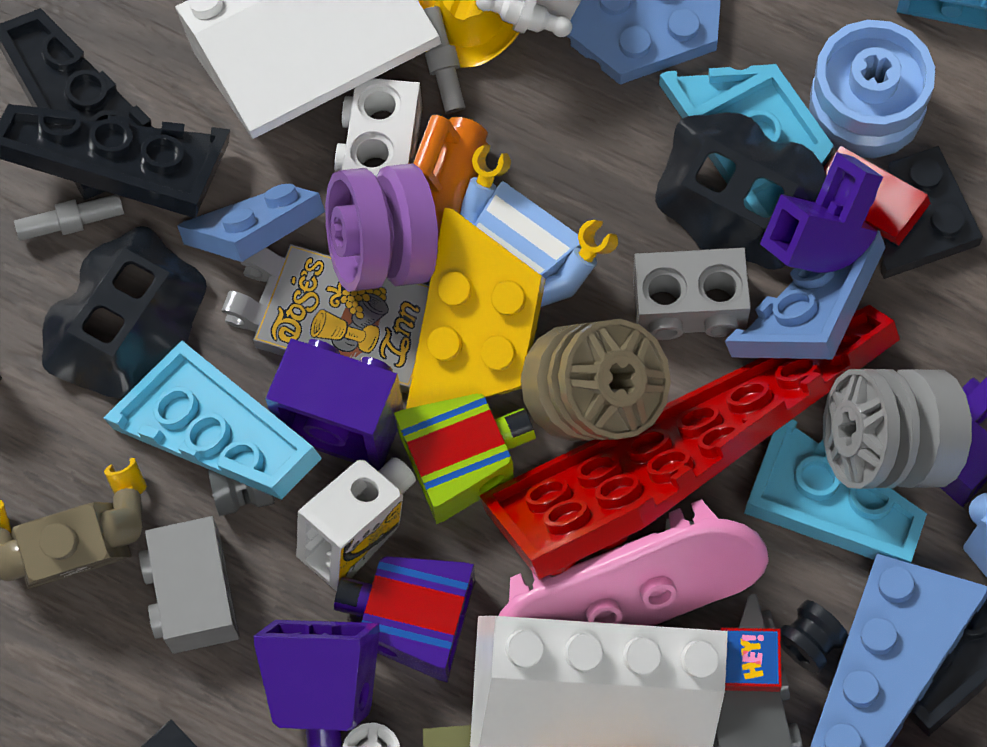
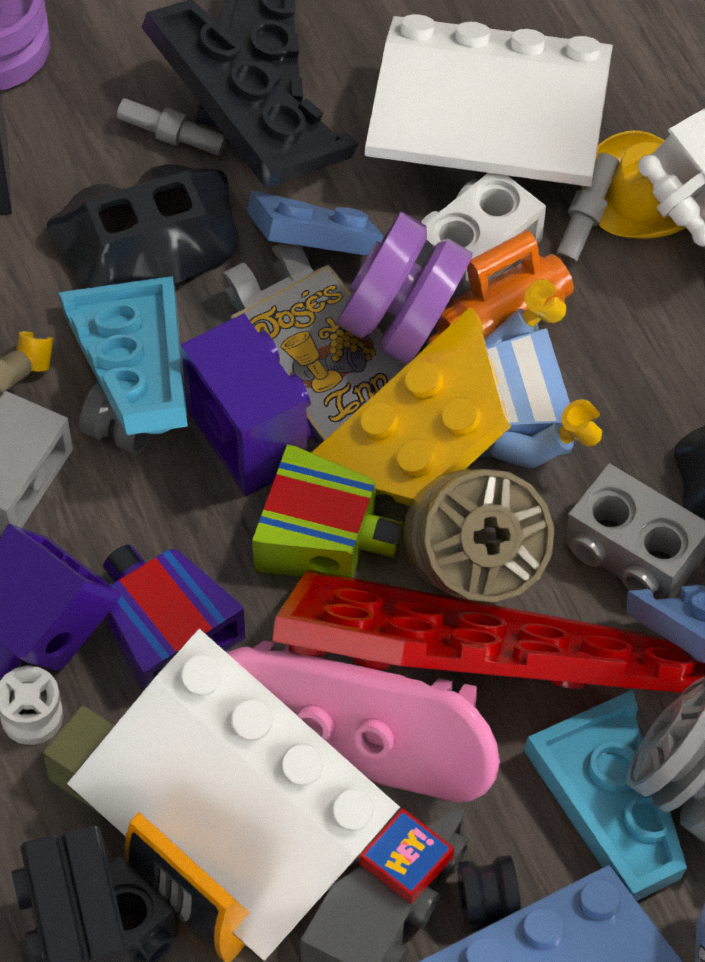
camera: 35 degrees right, 10 degrees down
(351, 518) = (180, 502): white torso -> none

